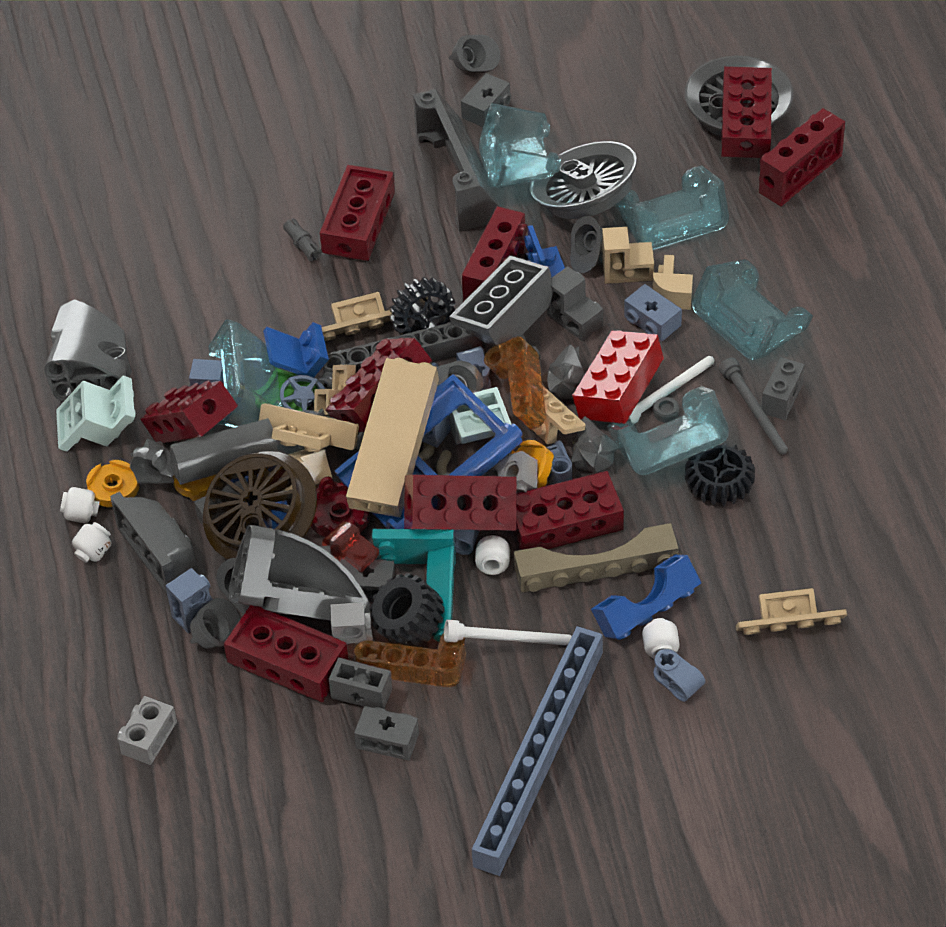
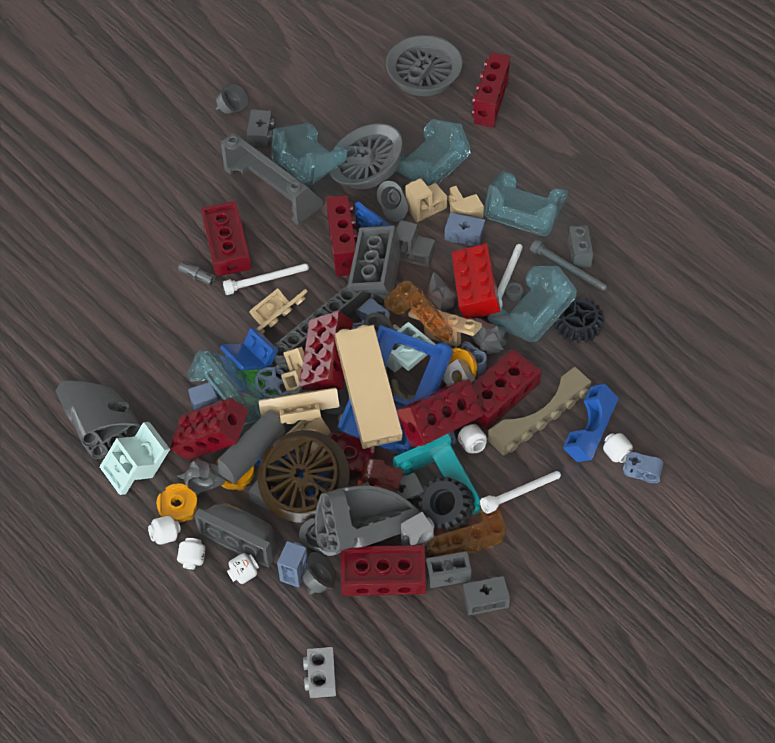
camera: 30 degrees left, 5 degrees up
(136, 582) = (242, 568): none -> white head
(330, 270) = (231, 286): none -> white piece
(417, 304) = (317, 287): black gear -> none
(537, 751) = (595, 563): sand blue brick -> none
(753, 136) = (442, 73): dark red brick -> none
(789, 609) = (681, 391): tan bracket -> none

